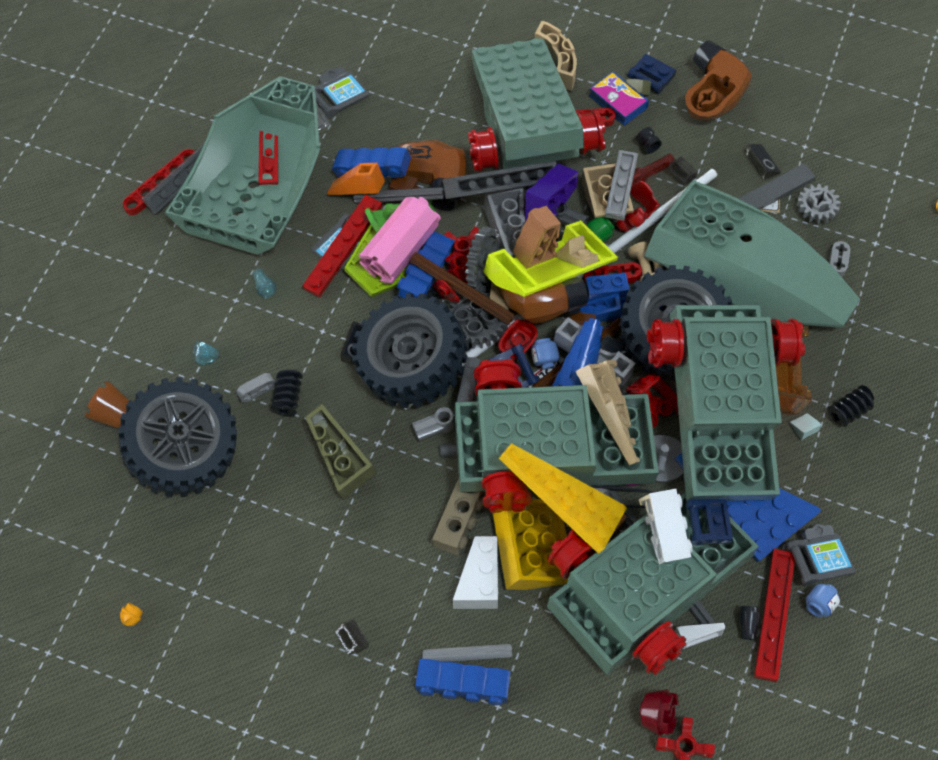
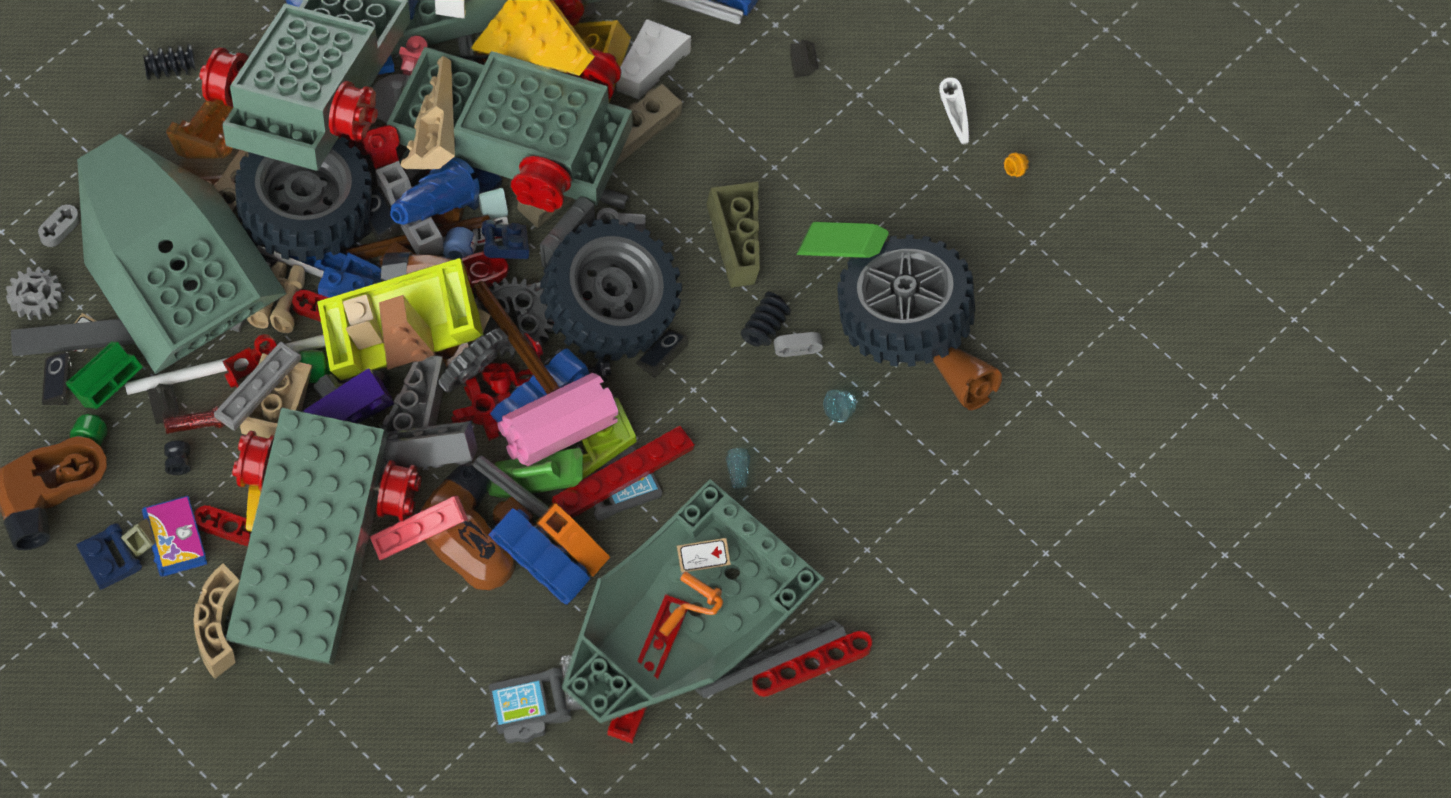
camera: 160 degrees left, 0 degrees up
(202, 643) = (955, 107): none -> white piece
(237, 170) = (713, 596): none -> orange piece
(249, 465) = (843, 240): none -> bright green piece
(257, 199) = (703, 555): none -> white sticker
(449, 143) = (418, 528): none -> coral tile
(668, 479) = (411, 53): none -> coral hips
(716, 132) = (90, 427): none -> green head
(730, 165) = (103, 375): none -> green piece

